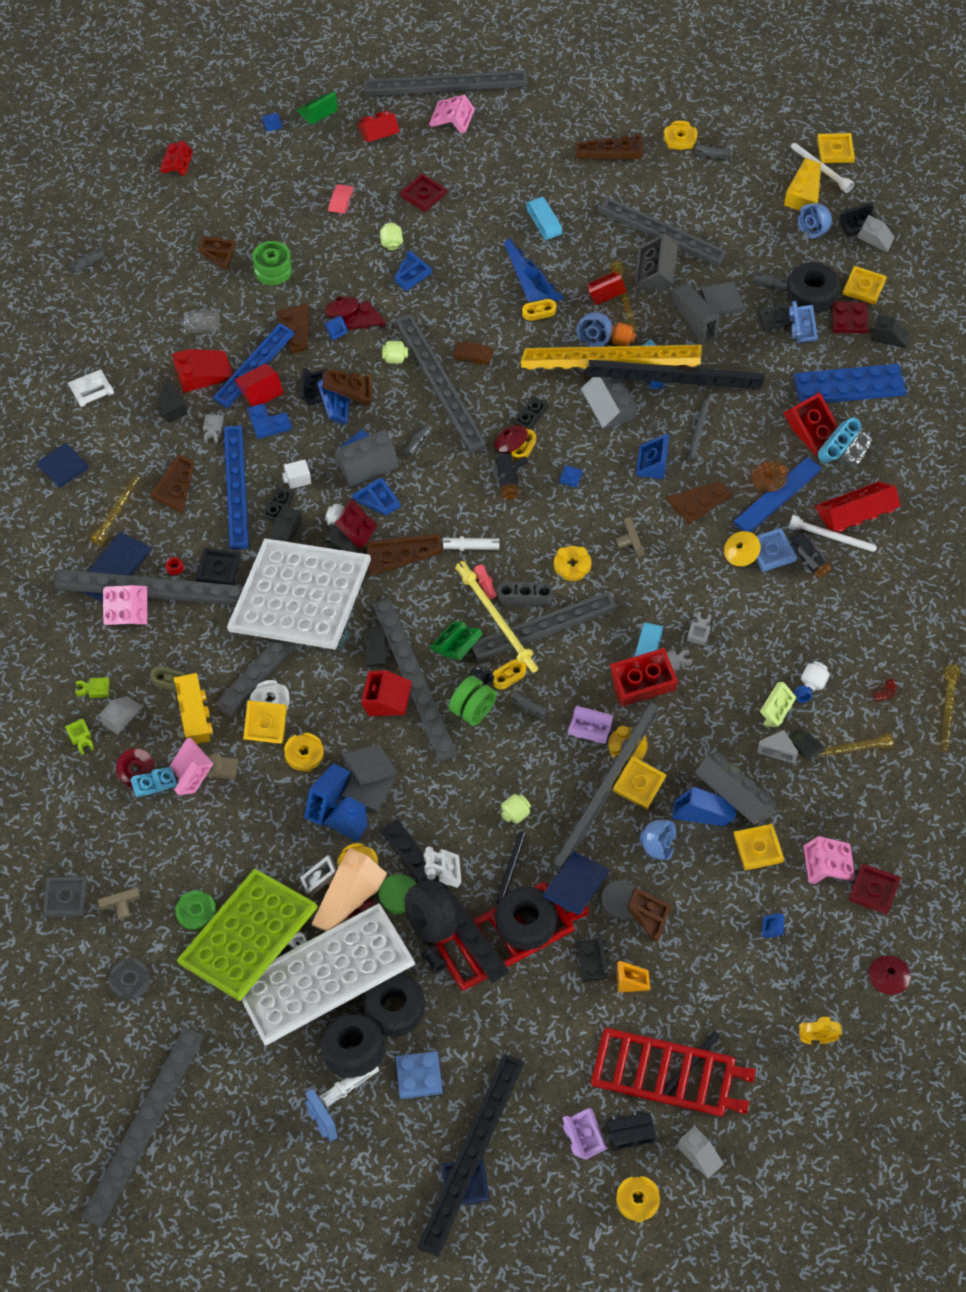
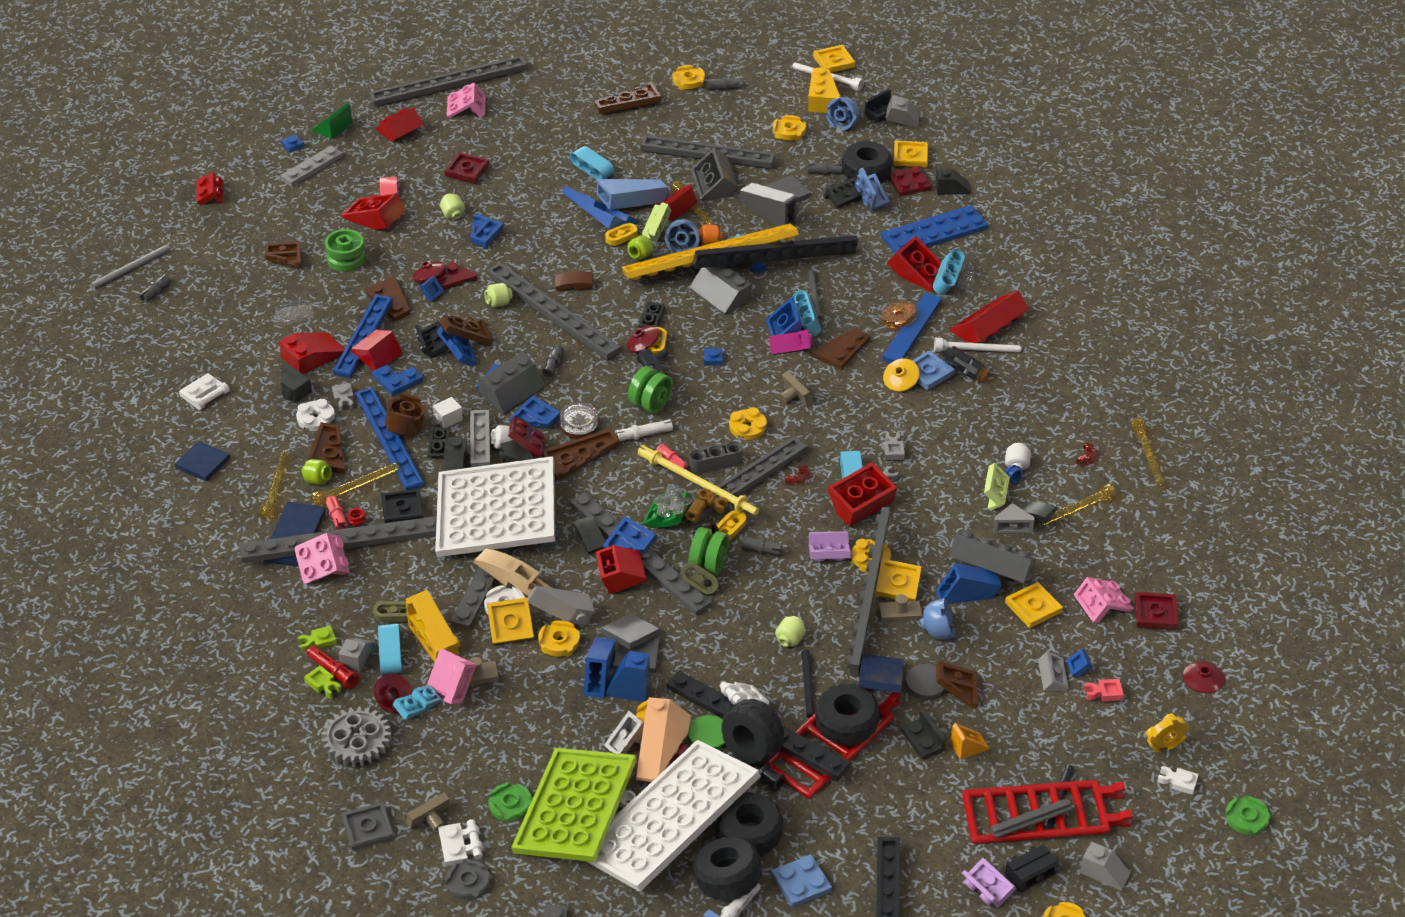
camera: 20 degrees left, 15 degrees down
(40, 240) = (130, 266): none -> light grey piece
(78, 791) = (356, 736): none -> light grey gear
(97, 728) = (338, 670): none -> red pin
(130, 939) = (453, 842): none -> white plate
(150, 718) = (389, 649): none -> medium azure beam
(151, 536) = (319, 498): none -> clear yellow piece
(156, 507) = (316, 472): none -> lime head
(158, 557) = (336, 512): none -> coral axle
(172, 435) = (320, 407): none -> white plate
(255, 468) = (405, 415): none -> reddish brown brick
(279, 153) = (311, 166): none -> light grey plate
(288, 672) = (509, 570): none -> tan slope
(316, 511) = (479, 438): none -> light grey plate
(317, 223) = (375, 211): none -> red slope
(320, 721) = (563, 604): none -> light grey slope
(407, 663) = (631, 536): none -> blue wing
(414, 516) = (578, 420): none -> clear piece
(453, 726) = (698, 578): none -> olive plate
(457, 638) = (671, 501): none -> clear hips
(491, 502) = (650, 389): none -> bright green wheel
(494, 641) = (705, 499): none -> pearl gold bar
(550, 331) = (640, 247): none -> lime head
(565, 264) = (631, 192): none -> medium blue slope
(576, 306) = (657, 221): none -> yellowish green bracket
(596, 638) = (799, 478): none -> clear red arm
(629, 814) = (900, 610): none -> dark tan tile
(649, 481) = (790, 342): none -> dark pink bracket
(652, 1080) = (1031, 818): none -> dark grey axle
(678, 452) = (807, 313): none -> medium azure beam
(746, 926) = (1053, 672): none -> light grey slope
(755, 230) = (795, 132): none -> yellow plate
(788, 963) = (1106, 689): none -> coral plate
(816, 1081) = (1181, 779): none -> white plate
(862, 1139) = (1247, 821): none -> bright green tile

